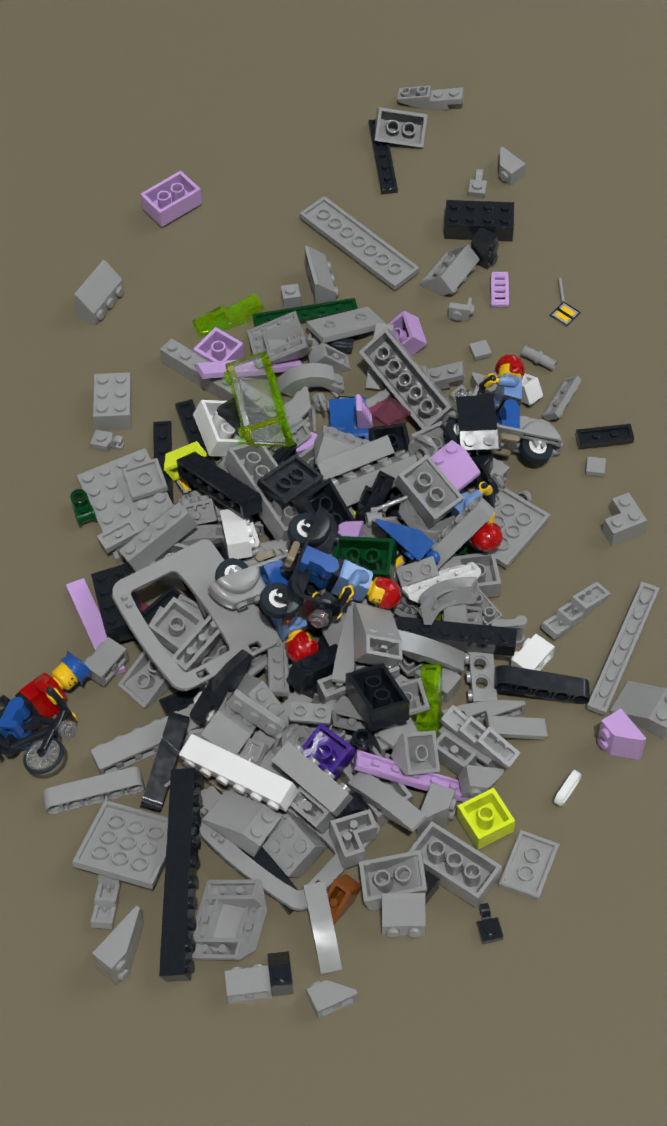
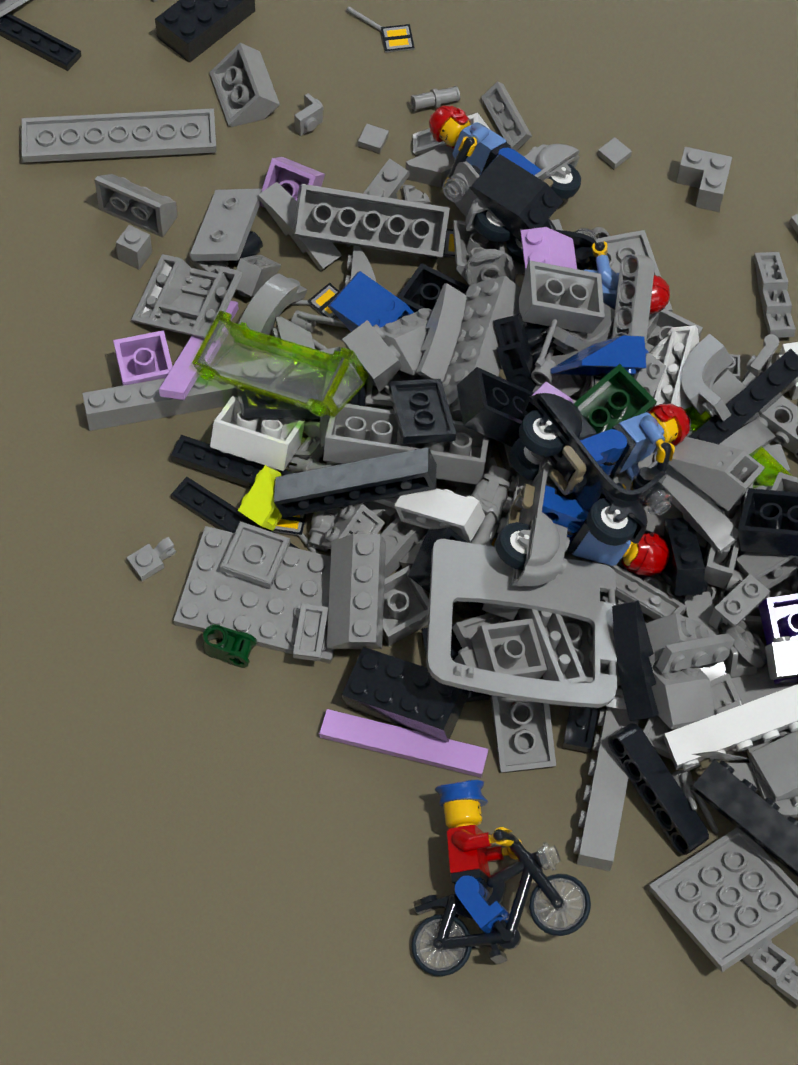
camera: 55 degrees left, 5 degrees up
(93, 790) = (625, 889): light grey beam -> none
(106, 661) = (471, 757): light grey brick -> none
(112, 401) = (105, 512): light grey brick -> none
(228, 317) = (98, 320): clear neon green slope -> none
(306, 434) = (376, 357): none -> light grey slope
(308, 312) = (169, 243): dark green tile -> none
(364, 415) = (388, 287): lavender slope -> none
(389, 412) = (391, 267): clear pink piece -> none
(485, 247) = (254, 31): black brick -> none
(499, 283) = (301, 55): lavender slope -> none
(605, 436) = (586, 118): black plate -> none

